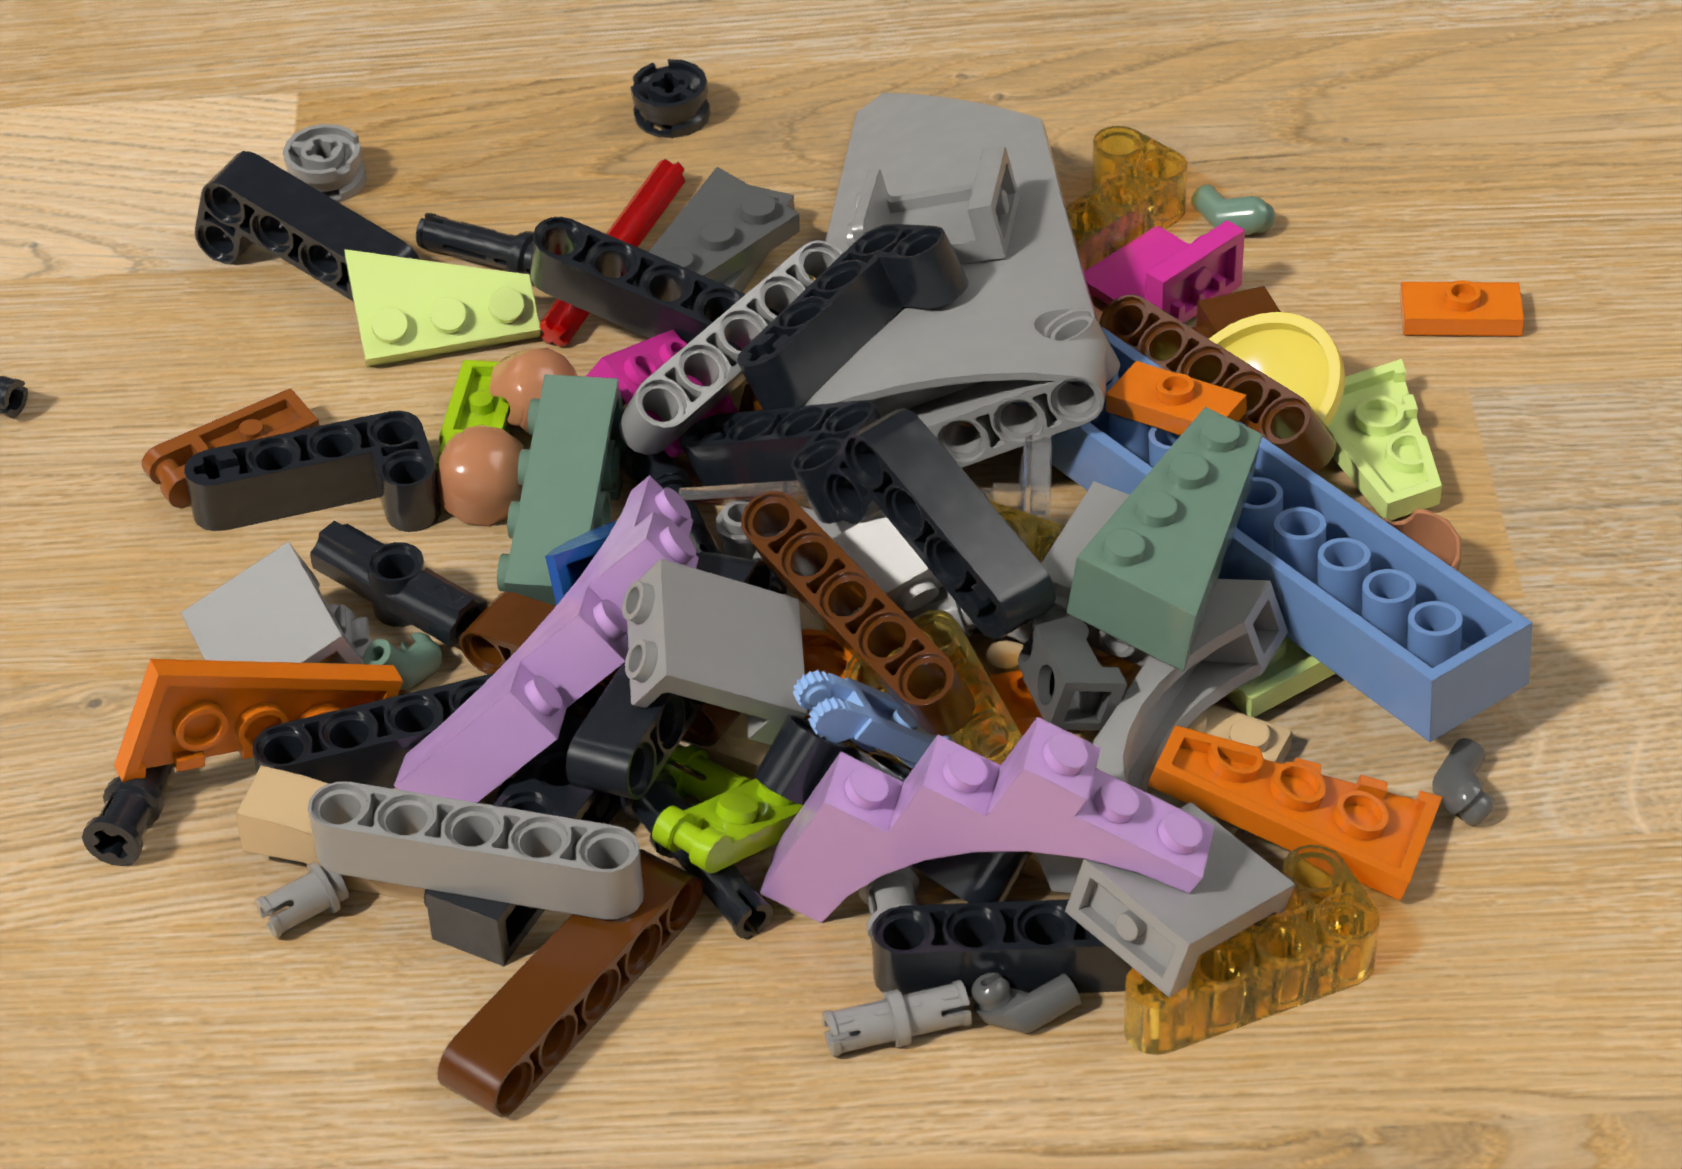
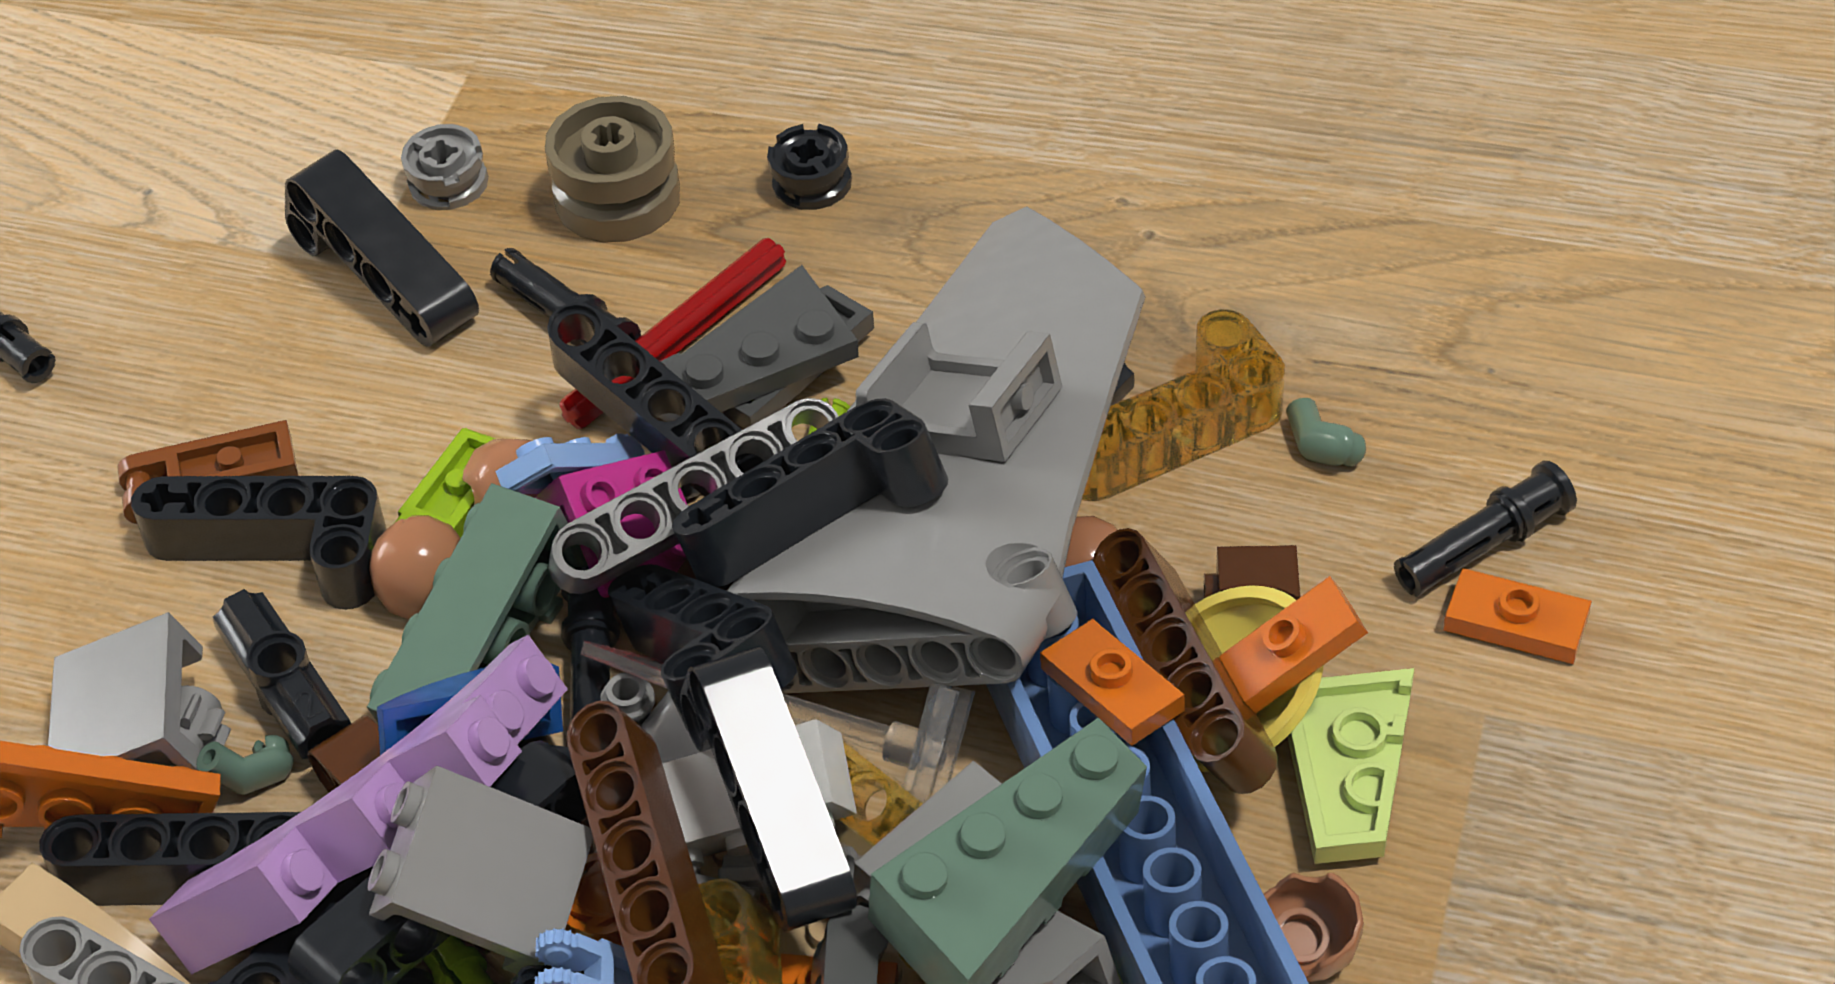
camera: 20 degrees right, 5 degrees up
(435, 307) = (461, 359): yellowish green wing -> none
(493, 131) = (613, 168): none -> dark tan wheel
(582, 349) = (544, 460): none -> light blue hinge
(1172, 271) = (1212, 500): dark pink bracket -> none
(1317, 339) = (1293, 644): none -> orange plate
(1418, 237) = (1507, 516): none -> black pin

